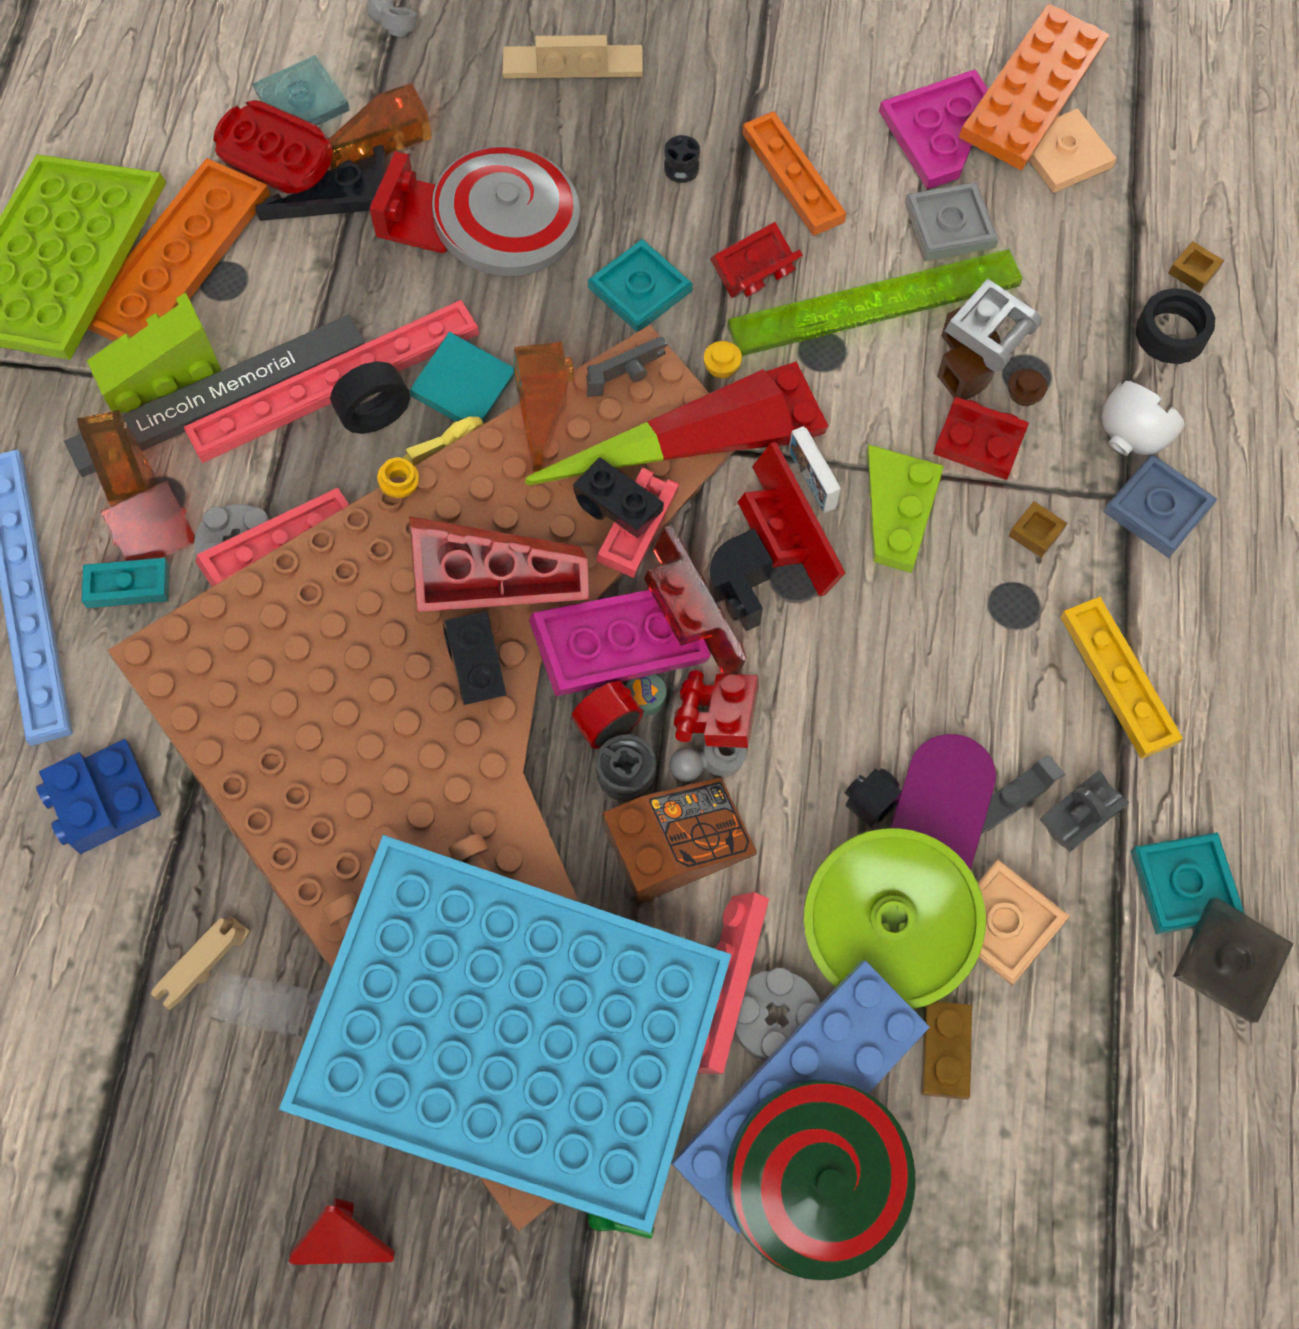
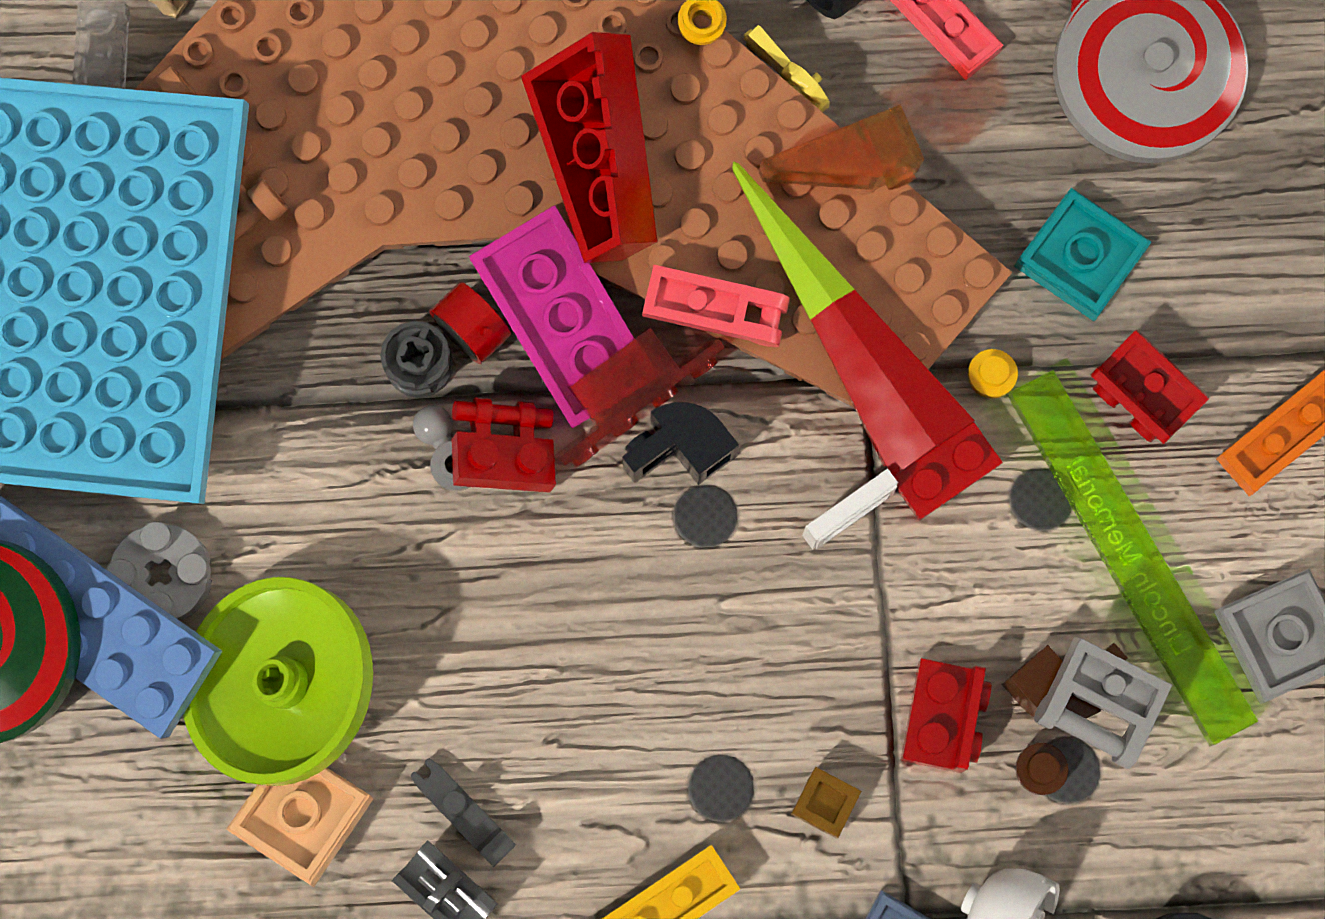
camera: 80 degrees right, 10 degrees up
(462, 380) = (883, 69): teal tile -> none
(474, 657) = (490, 154): black plate -> none
(612, 494) = (730, 271): black plate -> none
(627, 362) = (934, 253): dark grey piece -> none
(649, 693) = (513, 367): sand green tile -> none
(676, 837) = (343, 430): dark orange slope -> none
(681, 158) = (1300, 258): black wheel -> none
(739, 937) = (247, 517): coral plate -> none
(788, 522) = (765, 483): red bracket -> none
(873, 796) = (426, 642): black plate -> none
(901, 503) = (830, 626): lime wing -> none
(947, 1050) = (147, 766): pearl gold plate -> none
(948, 793) = (436, 728): magenta tile -> none

